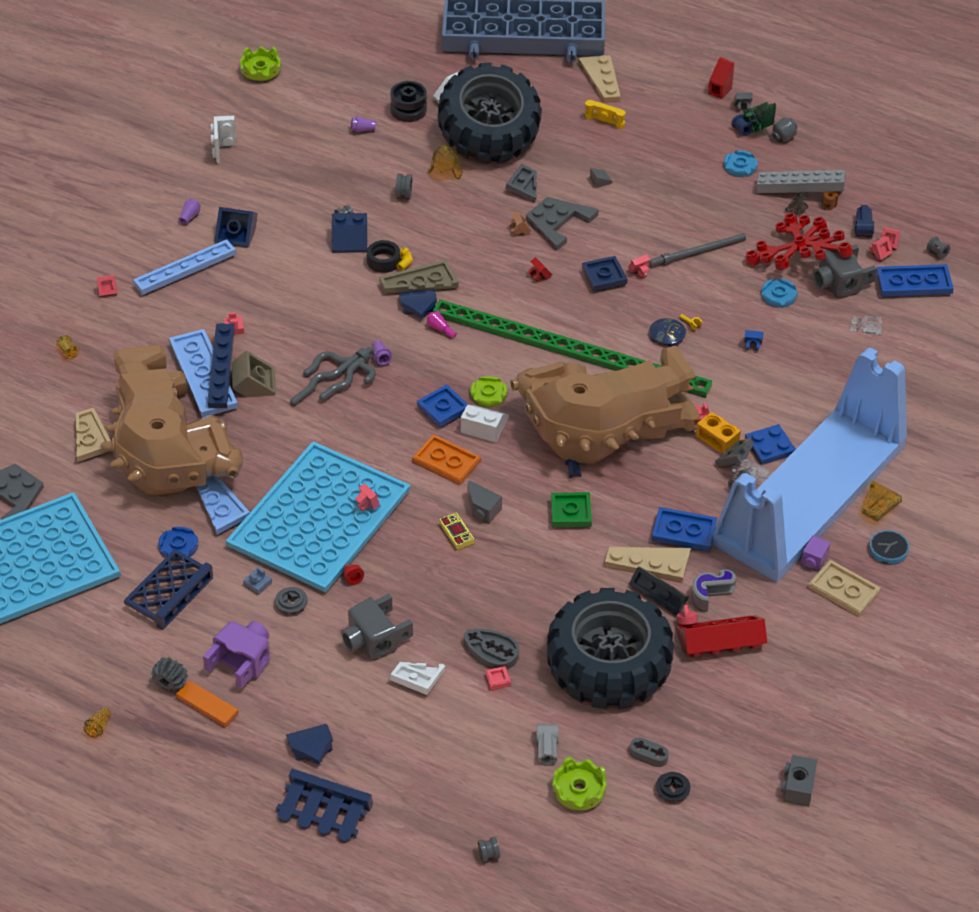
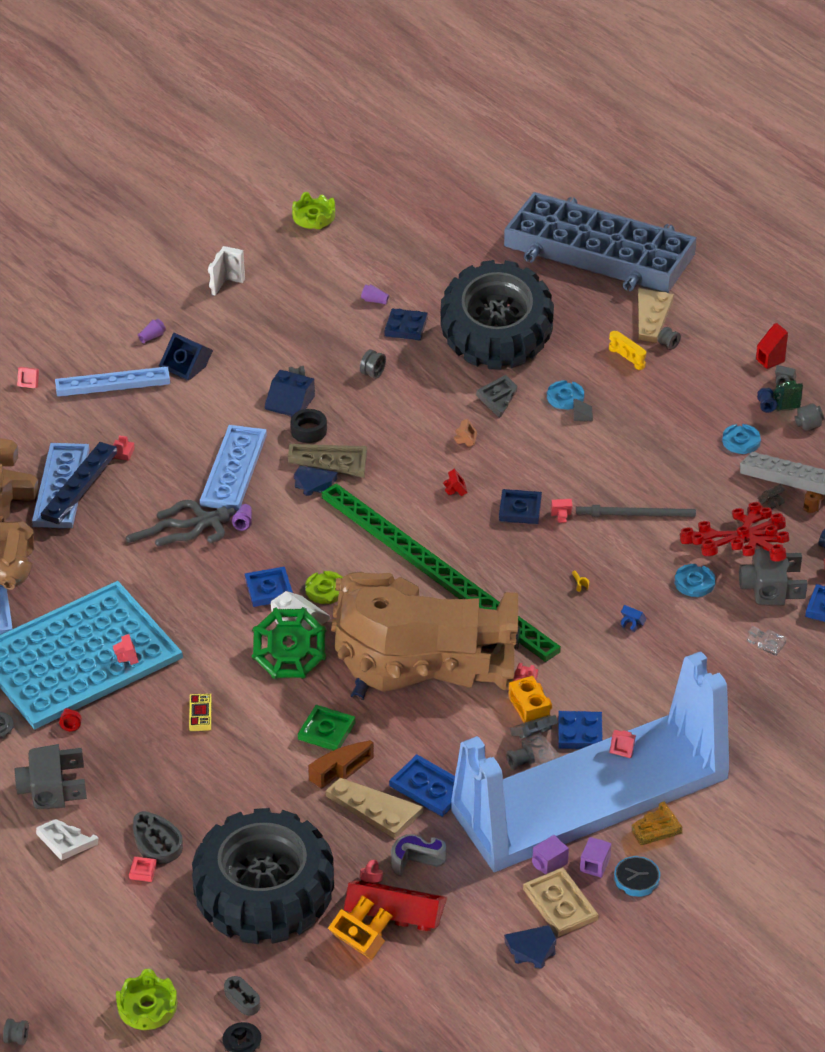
camera: 25 degrees right, 5 degrees down
(253, 376) = (105, 502): dark tan slope -> none
(343, 312) = (233, 467): none -> light blue plate
(404, 143) = (406, 324): none -> dark blue plate
(406, 259) = (330, 436): yellow arm -> none
(408, 101) = (430, 283): black wheel -> none
(437, 322) = (318, 503): dark pink cone -> none
(446, 159) = (431, 349): clear yellow helmet -> none
(446, 459) = (234, 638): orange tile -> none
(483, 502) = (243, 693): dark grey slope -> none
(493, 457) = (292, 654): none -> green plate
(547, 743) = (147, 944): light grey piece -> none
(553, 214) = (508, 434): dark grey wing -> none
(576, 167) = (562, 394): none -> dark azure tile
(602, 535) = (340, 763): none -> dark orange slope
(631, 94) = (669, 338): none -> dark grey wheel
(658, 590) = (359, 836): black plate -> none
(667, 331) = (548, 584): dark blue dish -> none
(710, 668) = (355, 933): none -> light orange brick
(820, 444) = (622, 743): none -> coral tile
(846, 629) = (532, 945): none -> dark blue slope
(851, 542) = (595, 857): none -> medium lavender brick

